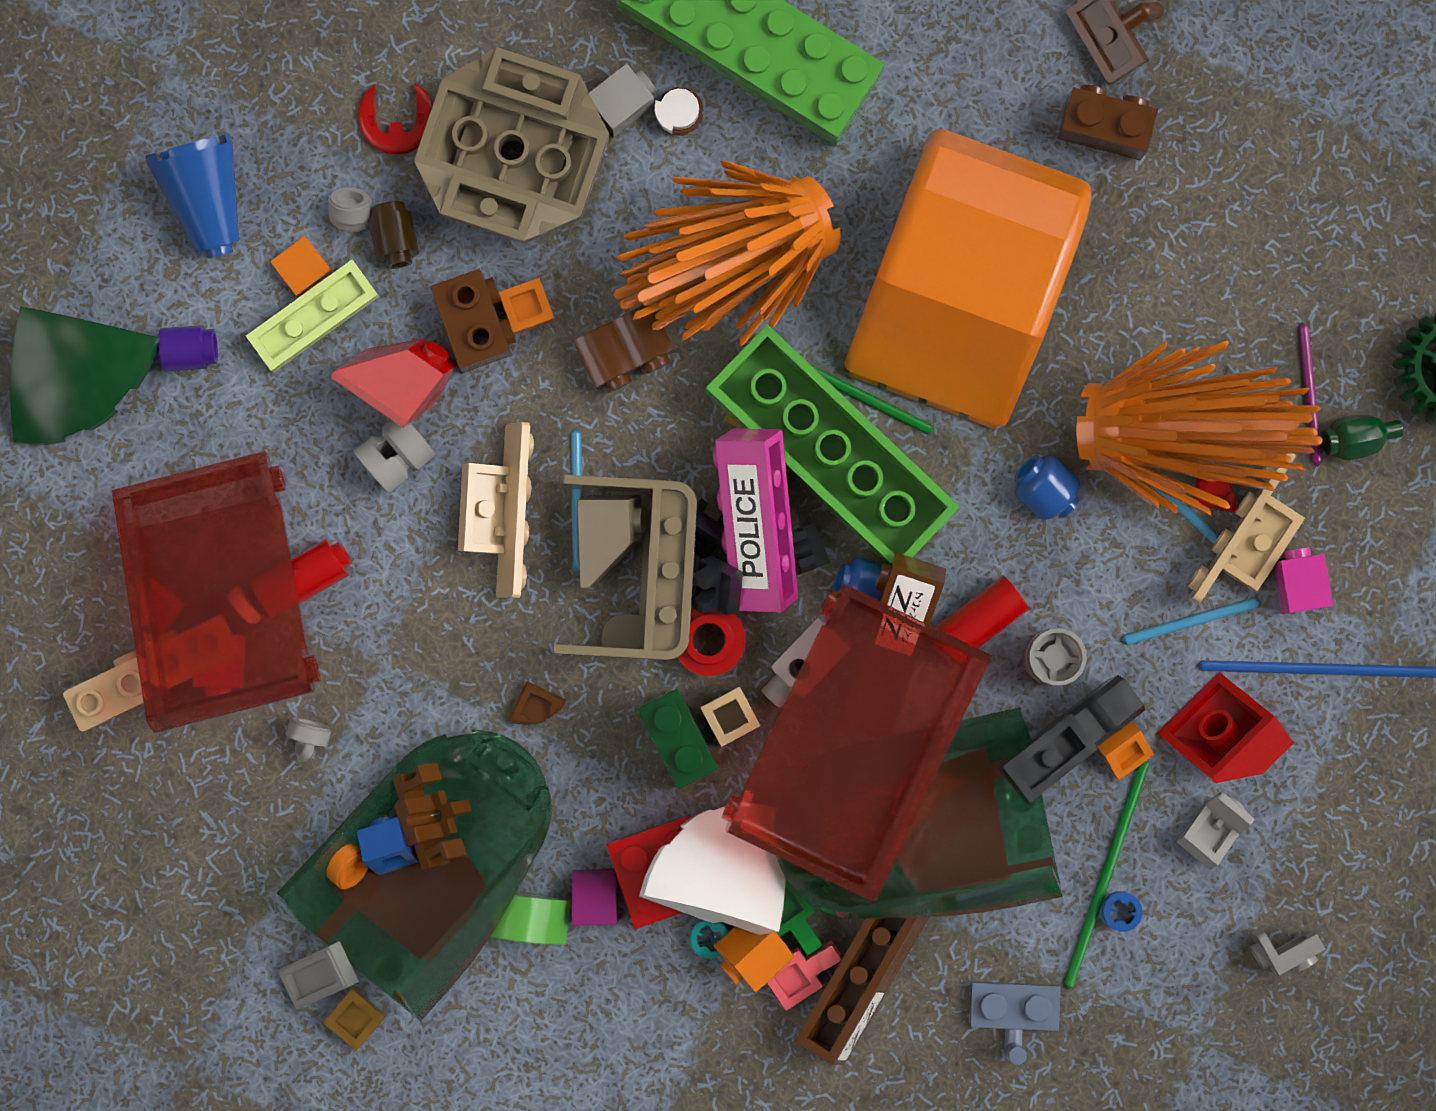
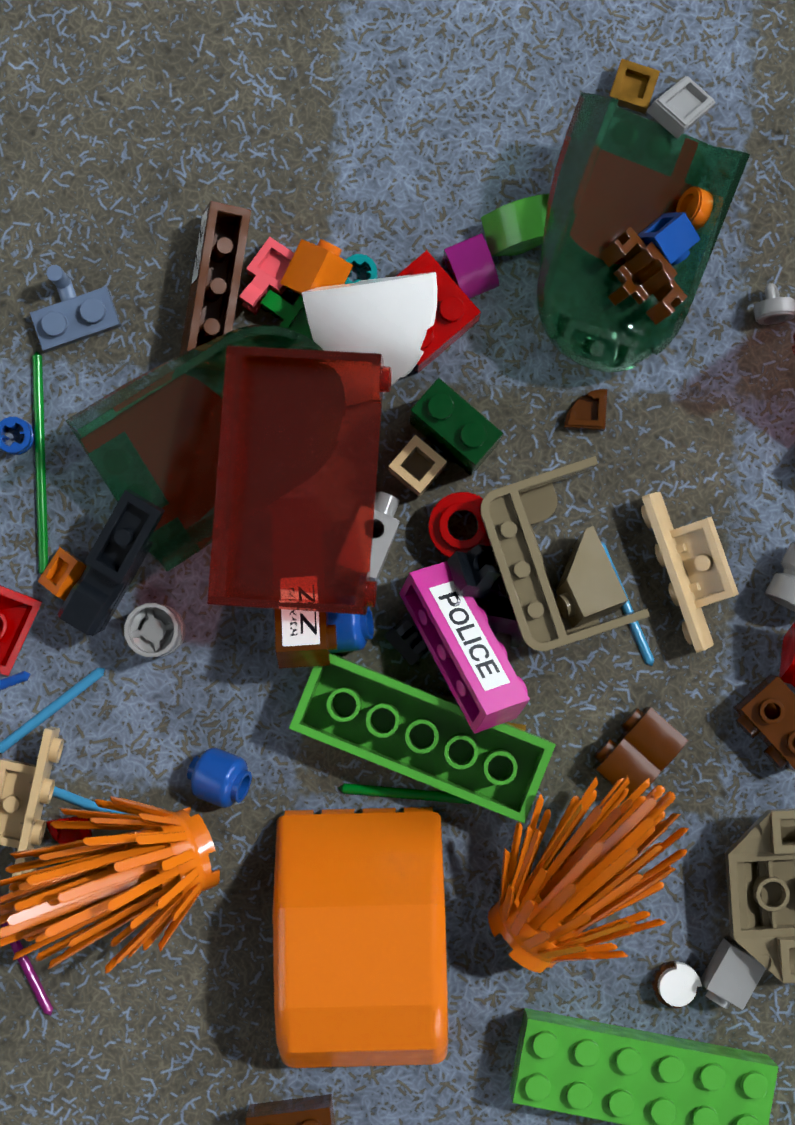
camera: 160 degrees right, 0 degrees up
(526, 306) = (739, 755): orange plate -> none
(985, 614) = (231, 642): red brick -> none

